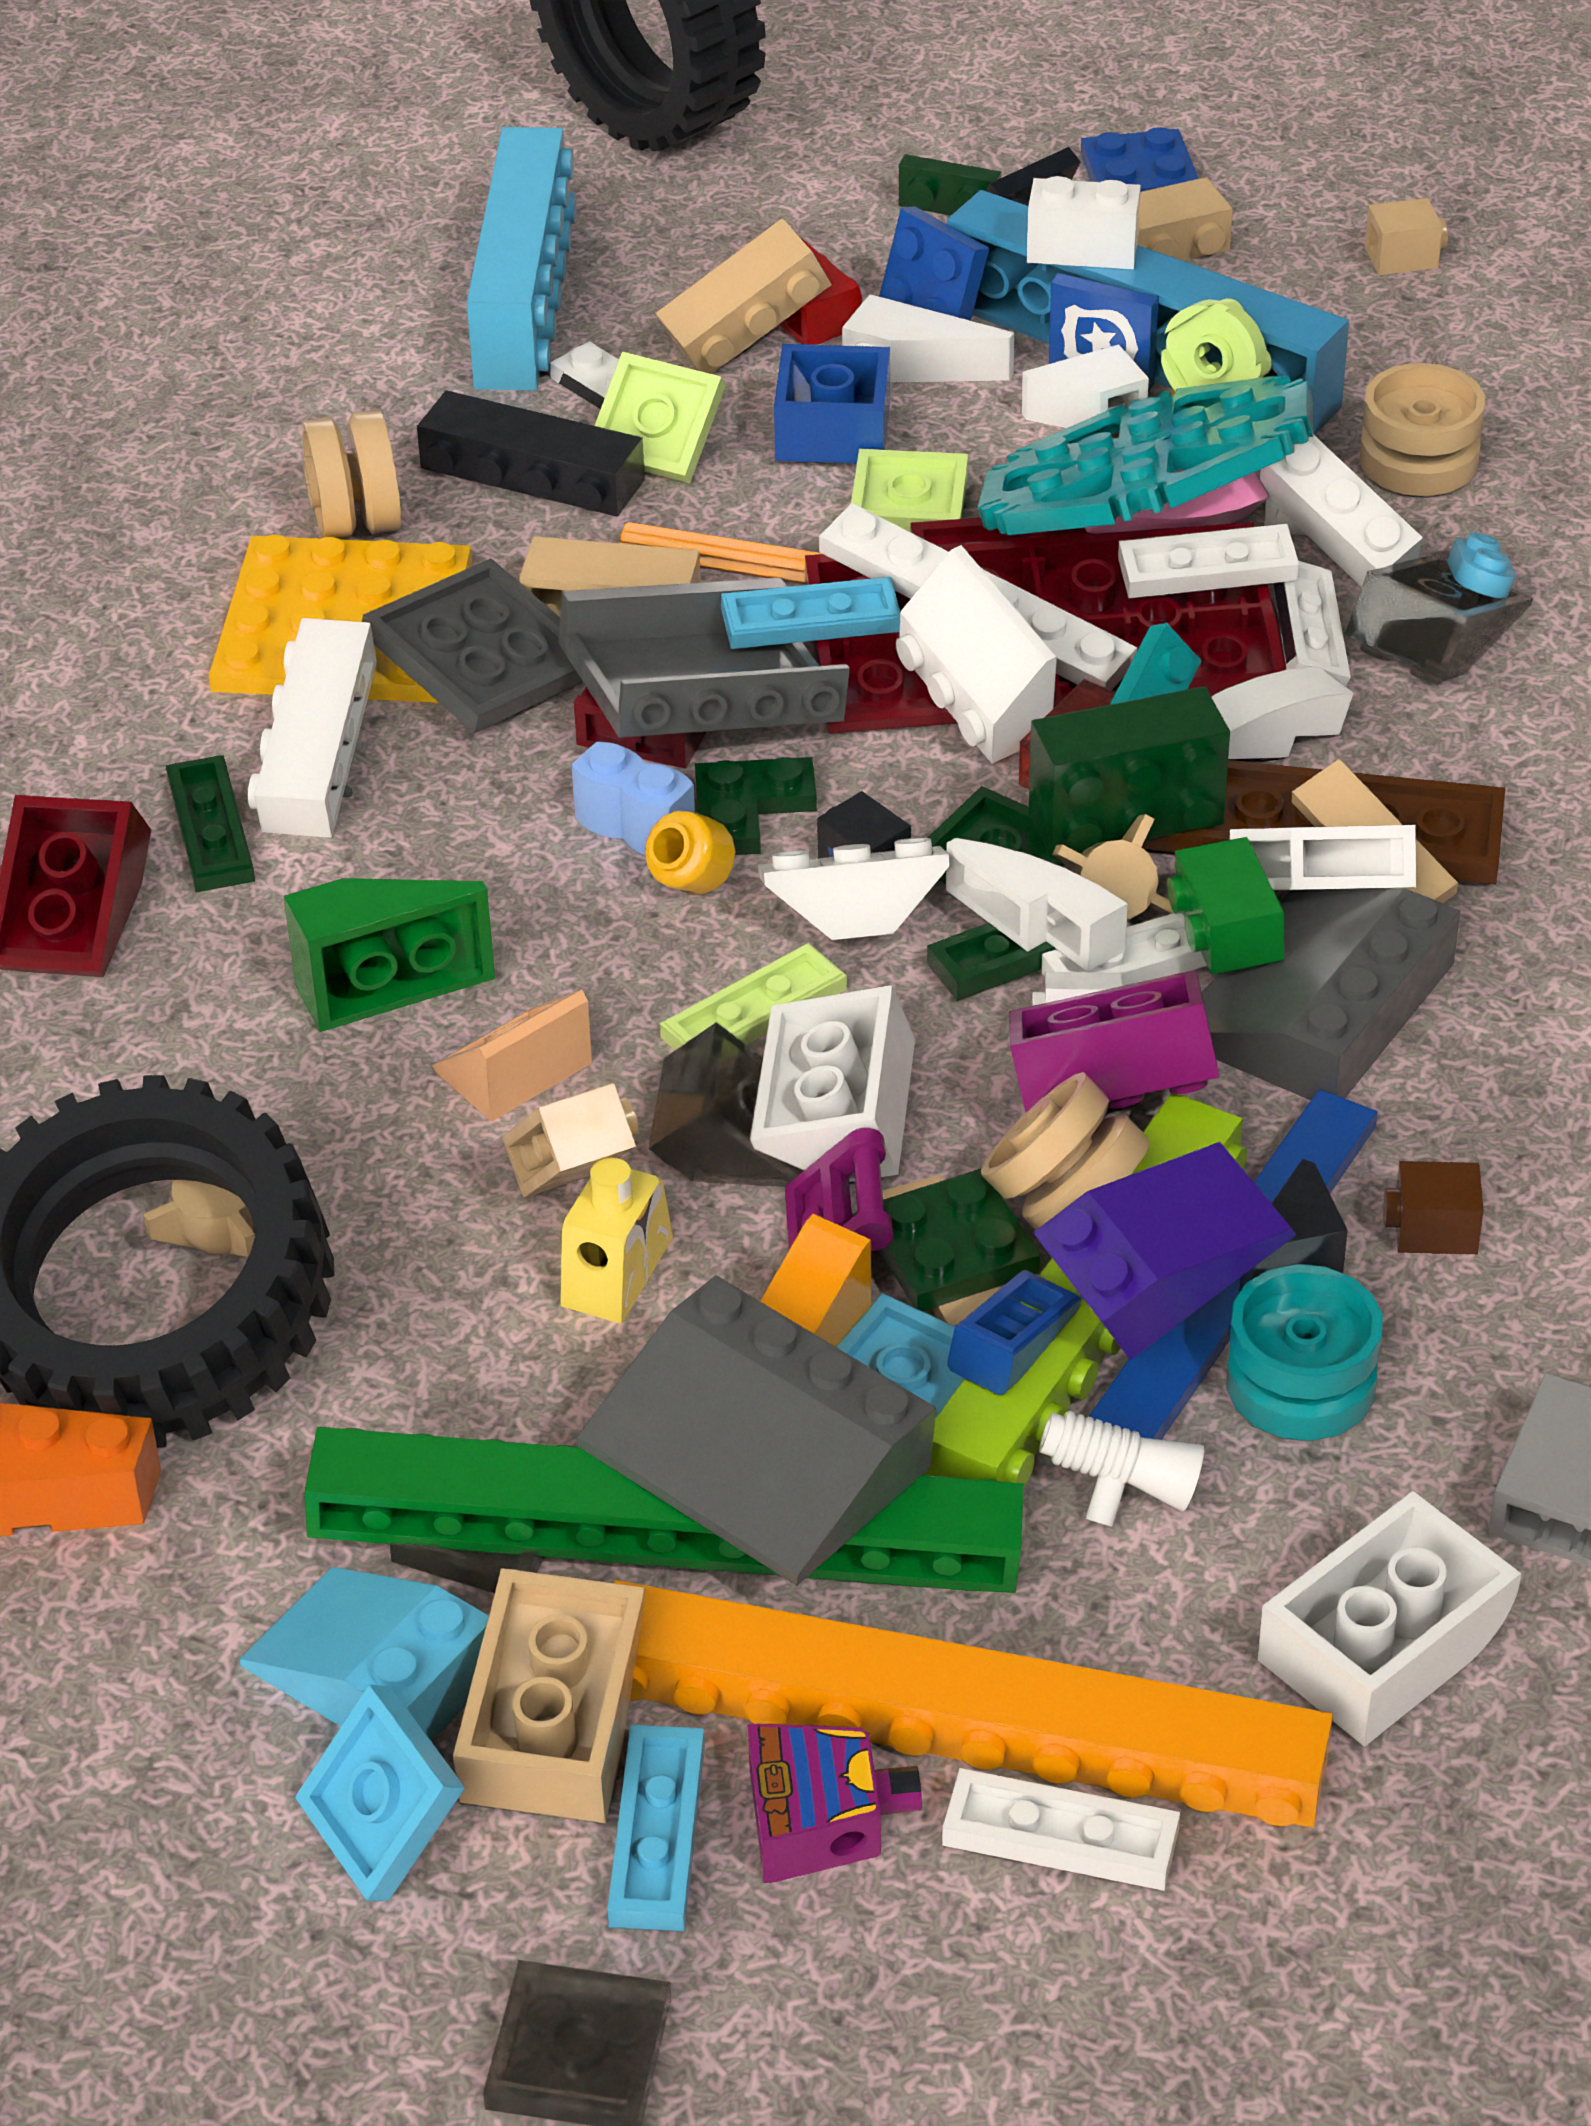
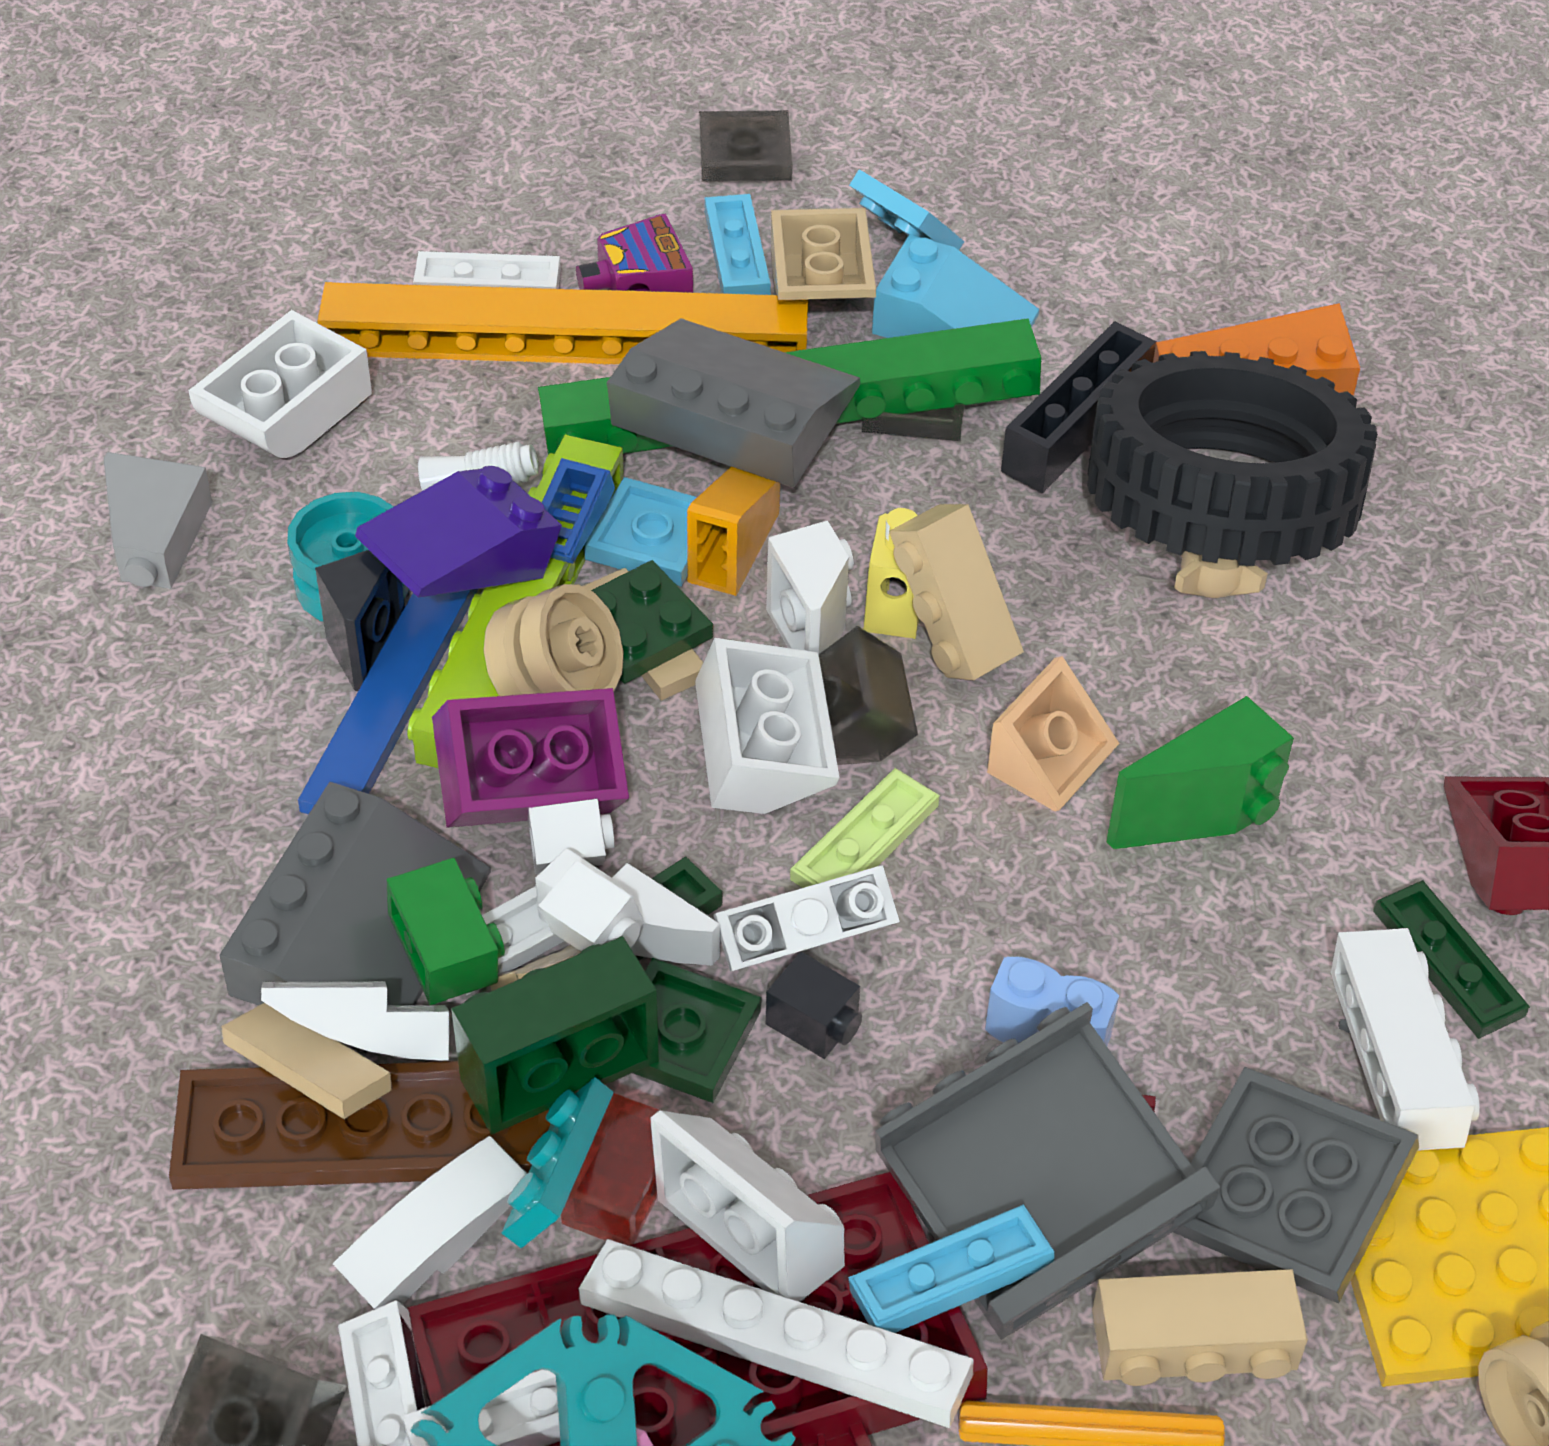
camera: 165 degrees right, 5 degrees up
(267, 1431) = (1062, 417): none -> black brick
(690, 852) = (971, 949): yellow head -> none
(733, 1202) = (809, 586): none -> white slope
(743, 789) = (956, 1042): dark green plate -> none
(825, 1189) = (725, 606): magenta plate -> none
(1077, 830) = (590, 909): none -> white brick
(1435, 1207) = (247, 709): reddish brown brick -> none

